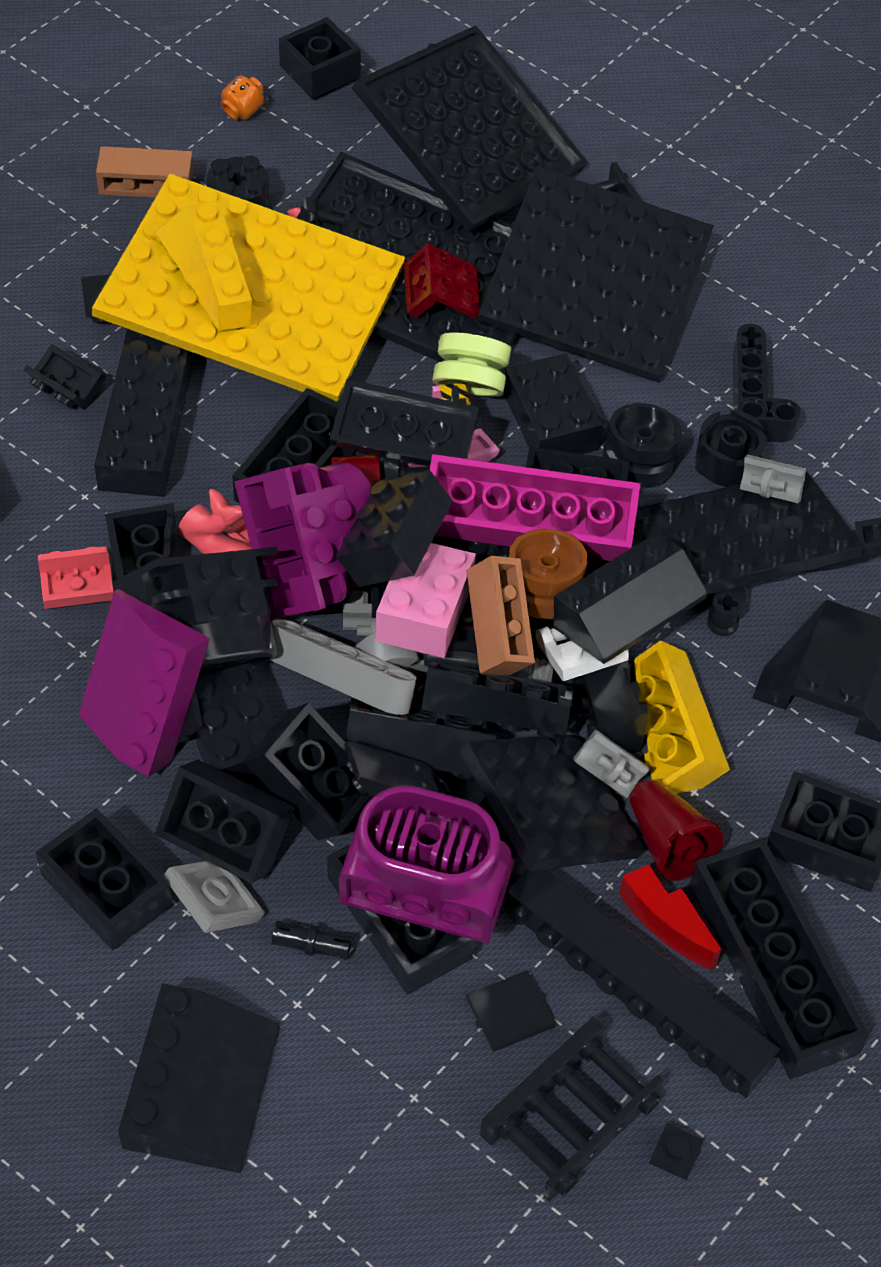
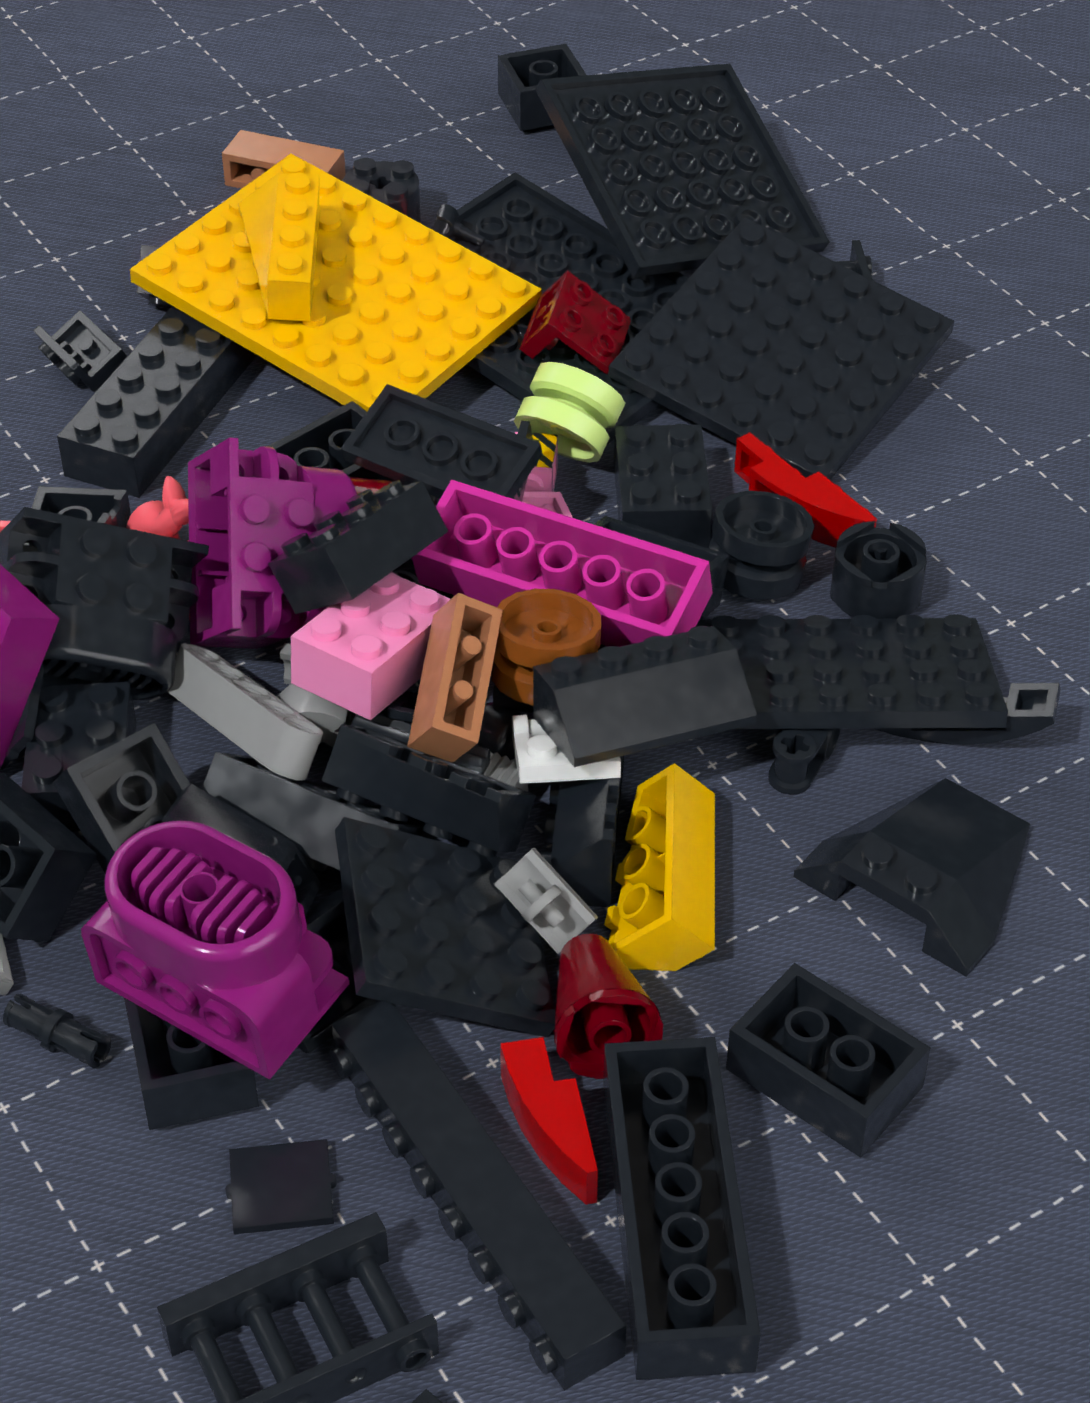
camera: 20 degrees right, 10 degrees down
(242, 98) = (435, 113): orange head -> none
(634, 387) = (826, 502): none -> red slope
(750, 392) = (953, 551): black beam -> none
(773, 479) = (917, 610): light grey hips -> none

